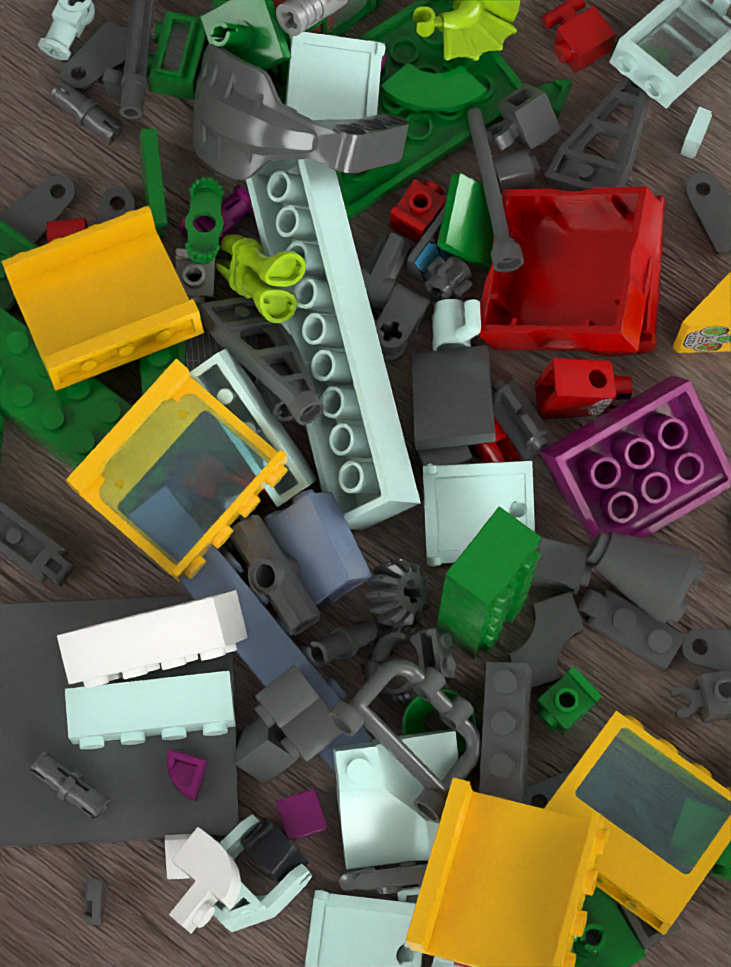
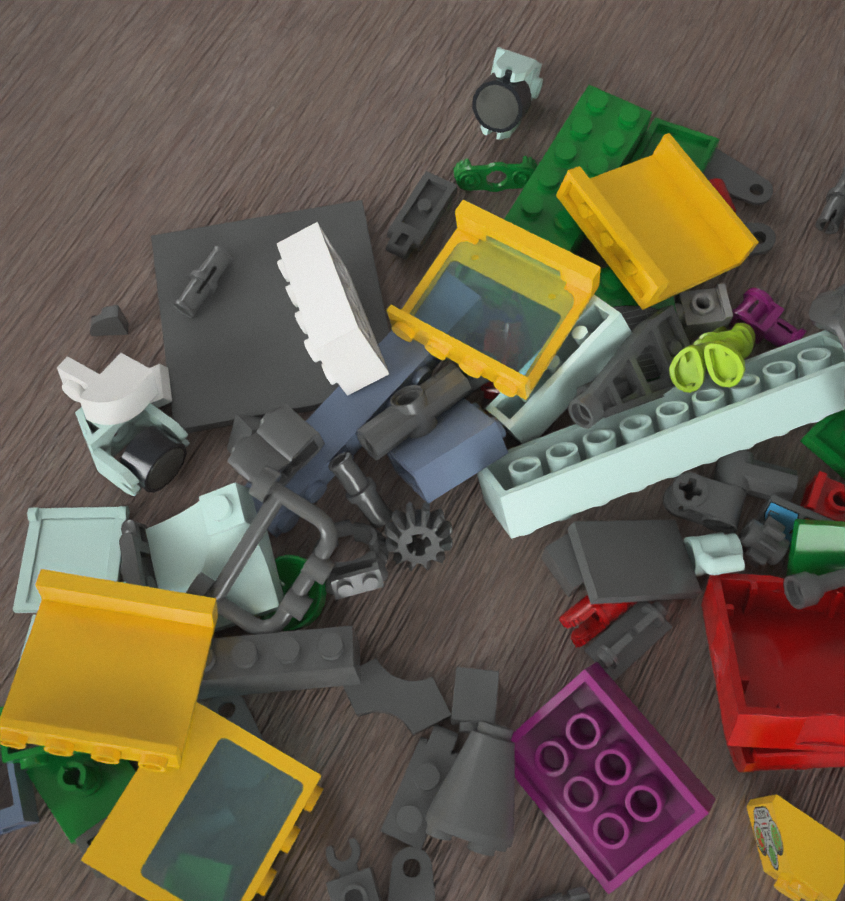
camera: 85 degrees right, 5 degrees down
(150, 709) = (277, 335): light aqua brick -> none
(152, 178) = (786, 260): green hinge -> none
(186, 772) = (224, 375): magenta tile -> none
(204, 201) = (779, 301): green piece -> none
(301, 815) = (195, 481): magenta tile -> none
(466, 496) = (515, 598): light aqua container -> none
(489, 583) = (413, 590): green brick -> none
(556, 716) = (339, 737): green brick -> none
(579, 388) = (670, 679): red torso -> none

